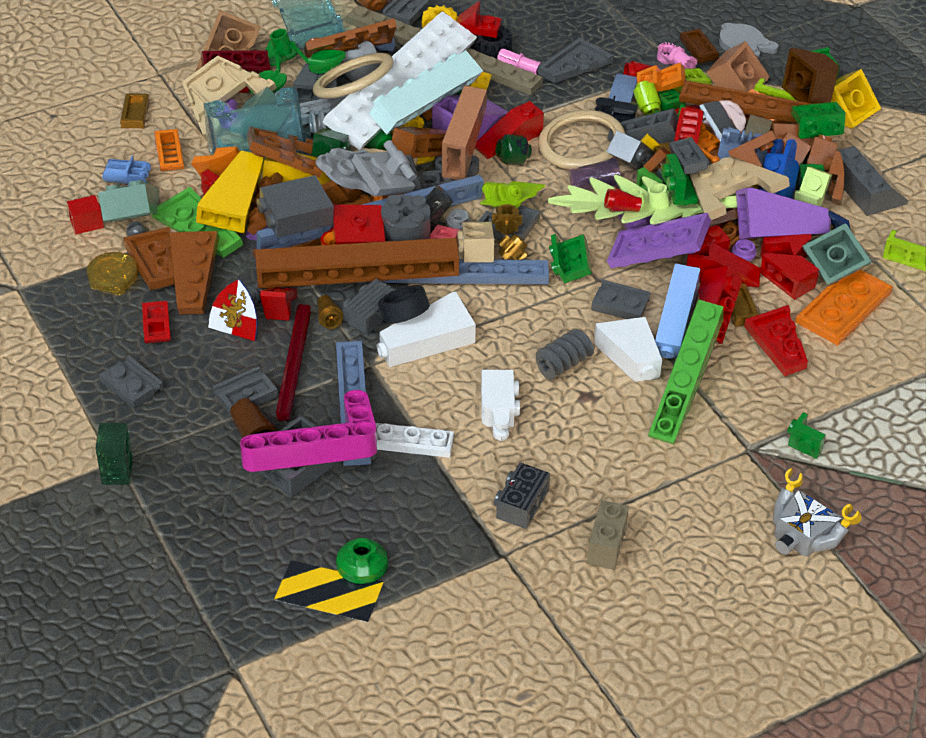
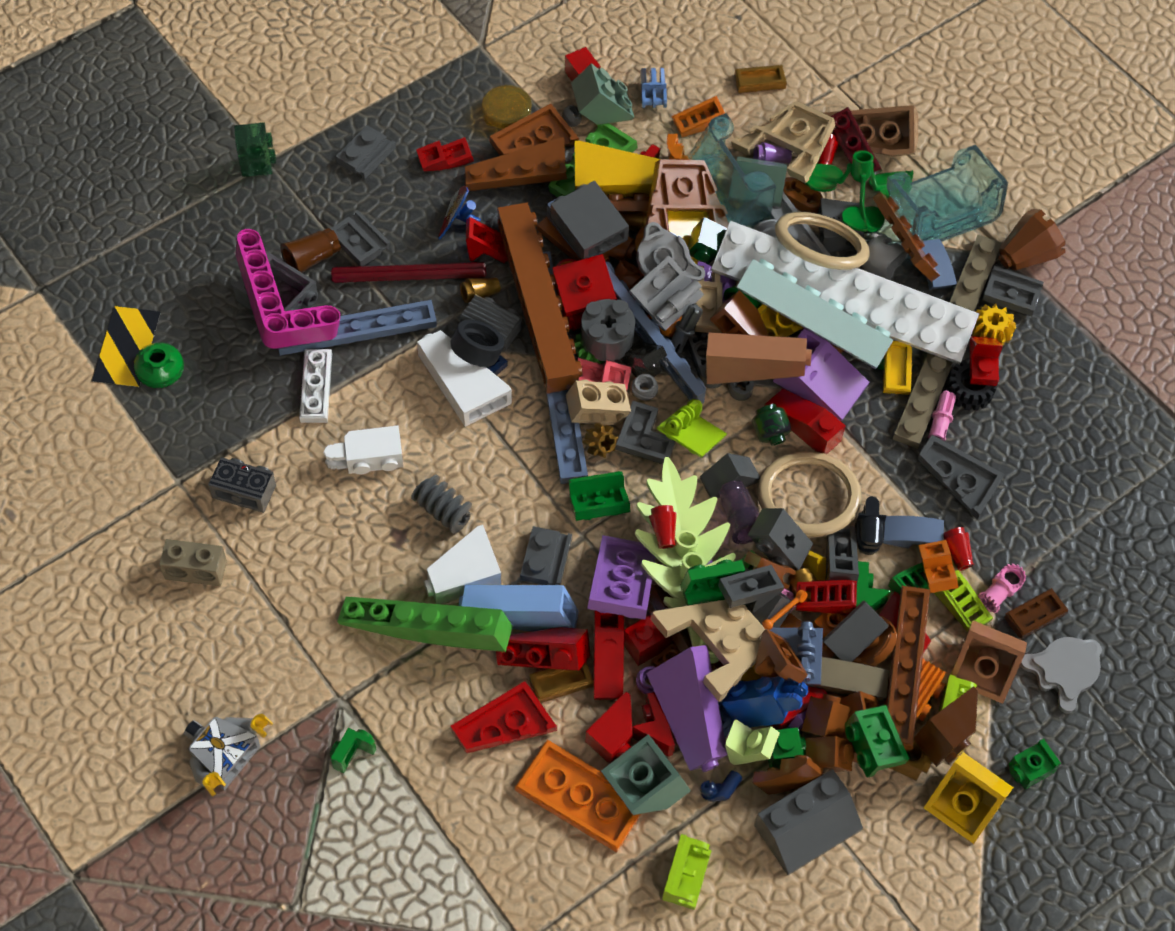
camera: 80 degrees right, 15 degrees up
(507, 219) = (633, 423): pearl gold gear -> none
(556, 180) = (727, 469): none -> dark grey slope
(647, 97) = (901, 555): lime brick -> none

